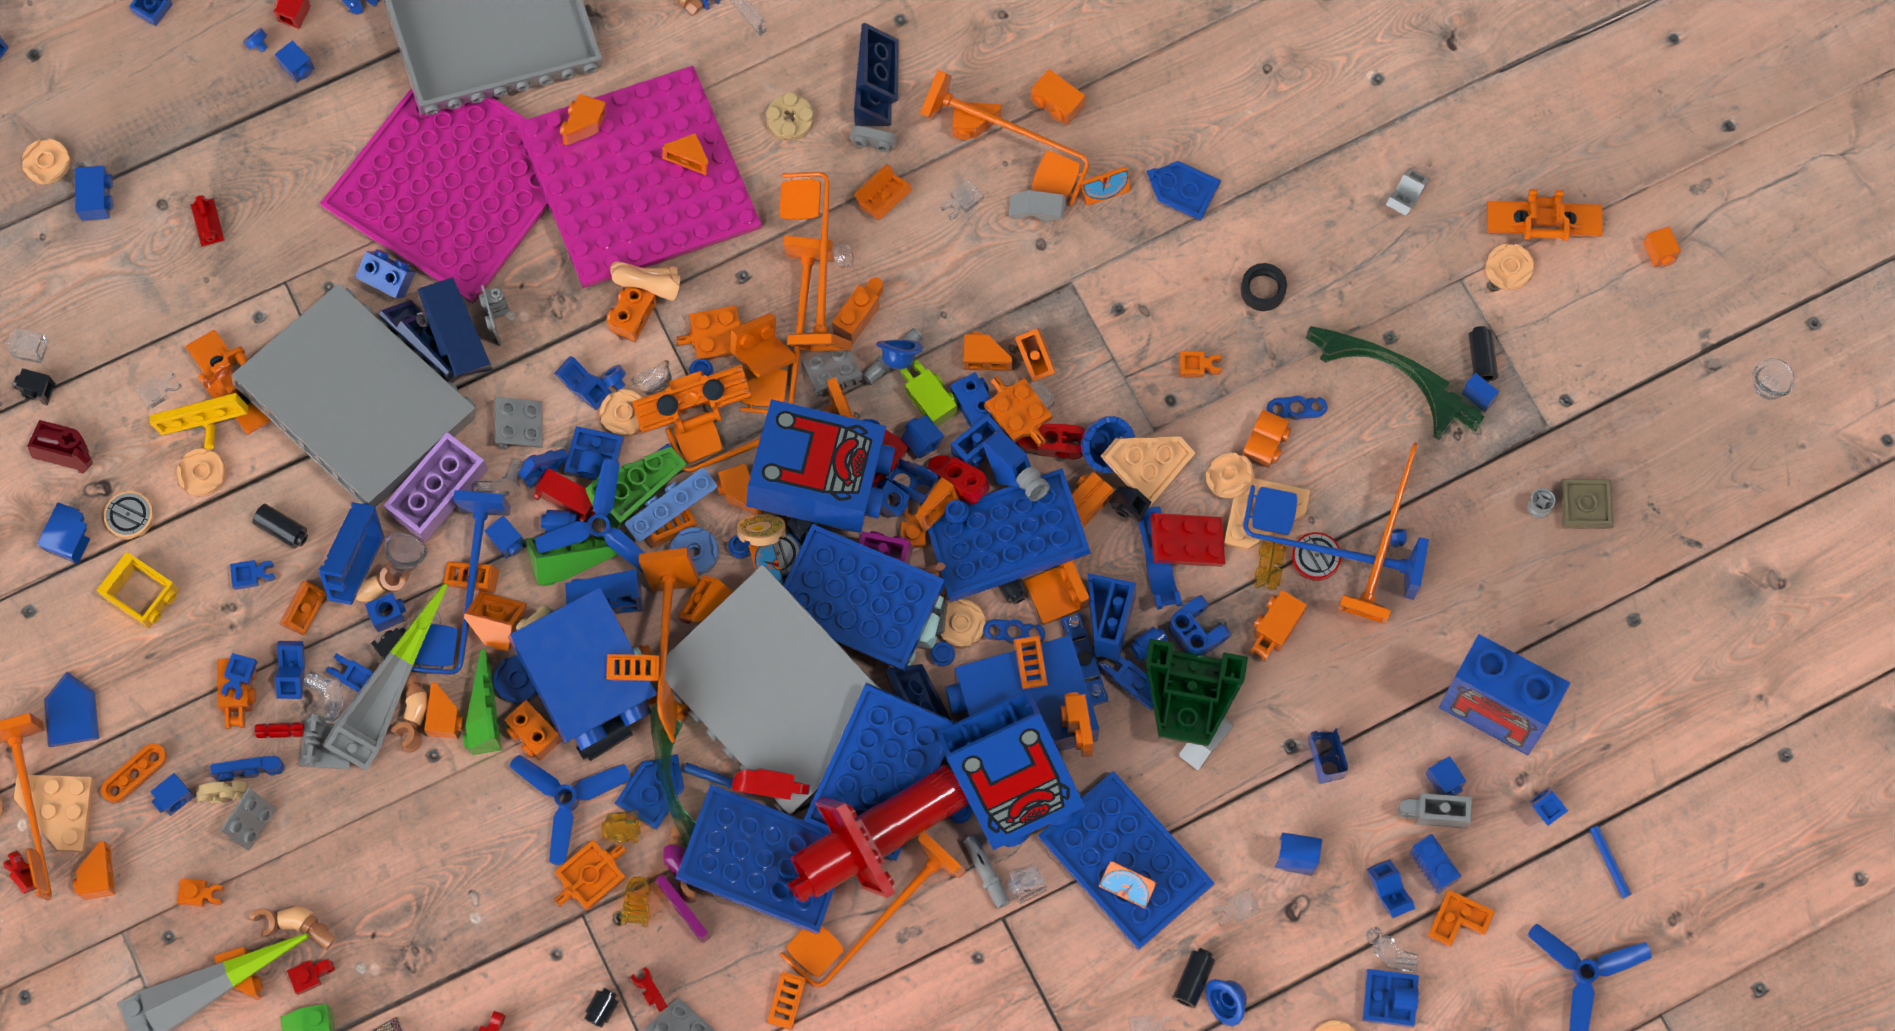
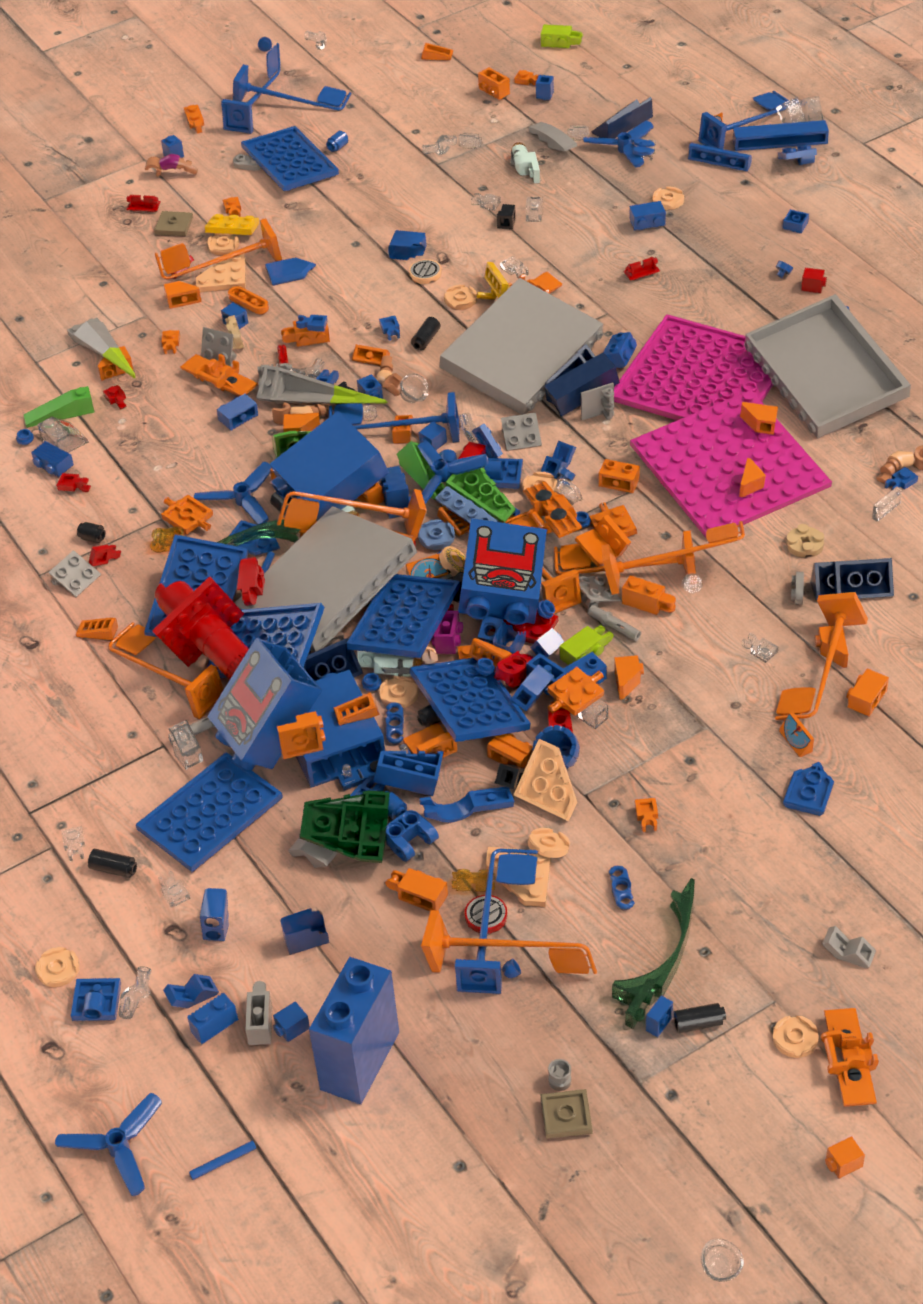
camera: 85 degrees right, 25 degrees down
(59, 446) = (466, 232): dark red piece -> none
(120, 575) = (369, 268): yellow window -> none
(247, 767) = (254, 345): blue hinge -> none
(282, 840) = (219, 374): none -> orange piece
(291, 670) = (328, 356): blue slope -> none
(295, 61) = (772, 287): blue brick -> none
(297, 919) = (152, 381): nougat piece -> none
(352, 553) = (403, 356): blue door -> none
(390, 798) = (237, 411): none -> blue brick
(428, 491) = (471, 395): lavender brick -> none
(495, 618) = (376, 435): orange slope -> none
(621, 827) = (221, 523): clear yellow brick -> none
(654, 667) = (329, 492): orange slope -> none
(659, 281) = (642, 476): light nougat piece -> none
(682, 908) = (153, 569): magenta tile -> none
(882, 192) = (753, 597): orange bracket -> none
(899, 353) = (612, 615): blue hat -> none
(1031, 481) = (510, 701): light grey wheel -> none
(1035, 354) = (632, 702): orange slope -> none
(1038, 204) = (766, 693): light grey slope -> none
(1127, 884) = (186, 808): slope -> none
(1187, 539) = (485, 818): red plate -> none
(1226, 1001) = (95, 885): blue hat -> none
(1266, 438) = (586, 865): orange brick -> none
(1267, 270) = (729, 838): black tyre -> none
(1459, 911) = (170, 1042): orange plate -> none
(1548, 806) = (267, 1097): blue brick -> none

